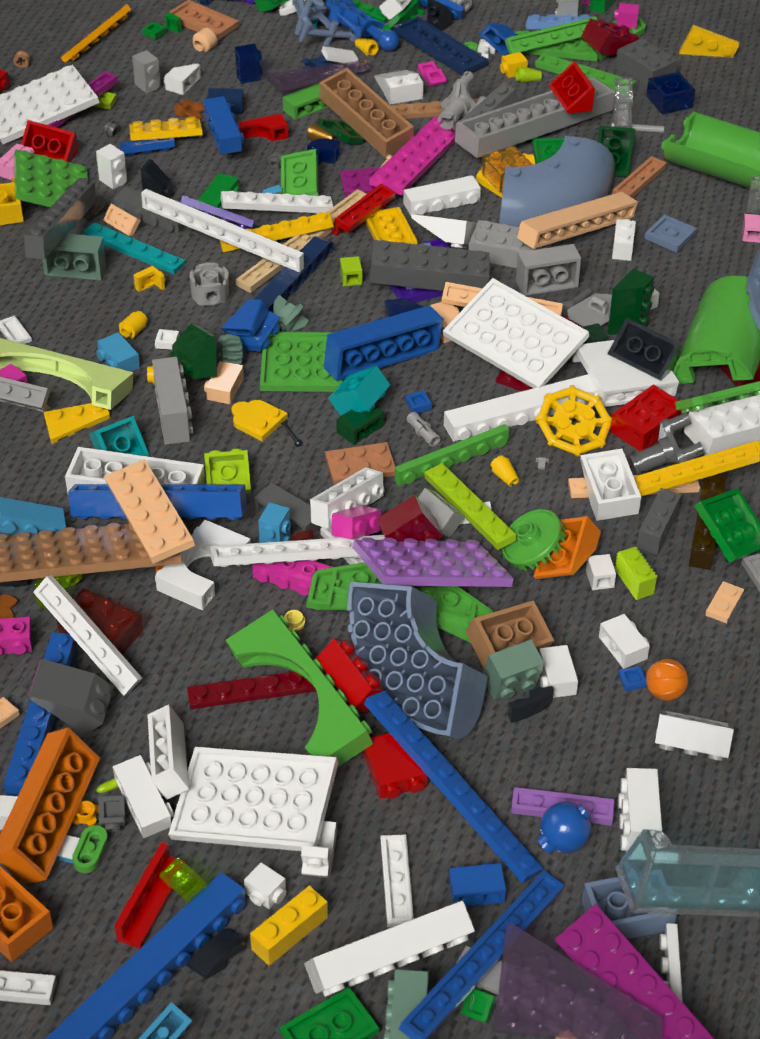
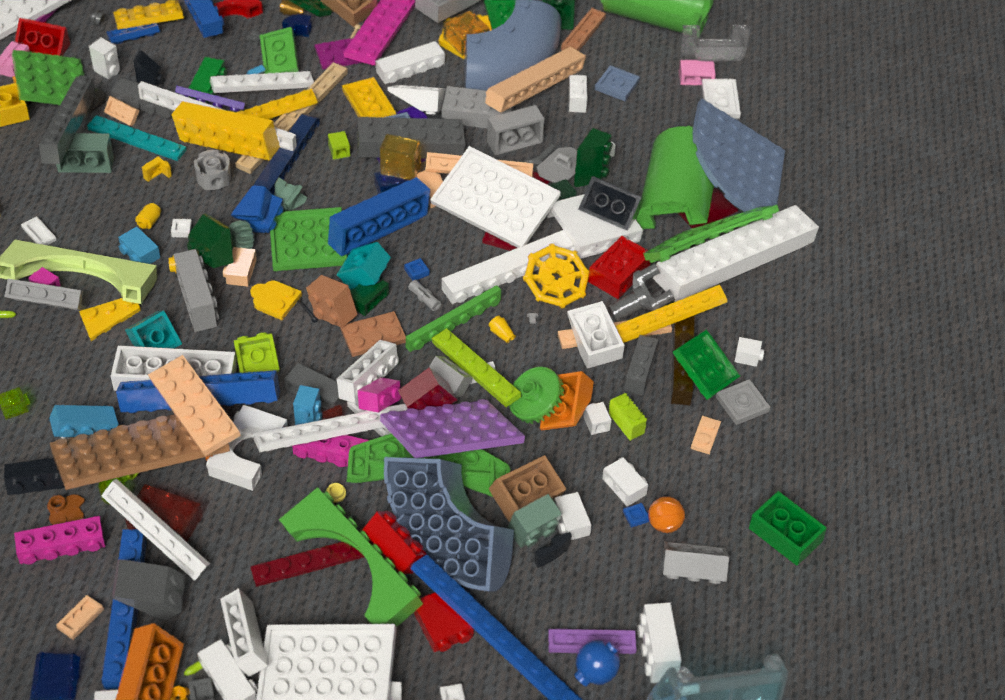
camera: 10 degrees left, 5 degrees up
(229, 245) = (226, 130): none -> yellow brick
(318, 423) = (331, 301): none -> nougat brick
(363, 209) = (342, 83): red fence -> none
(414, 283) = (400, 157): none -> clear yellow brick

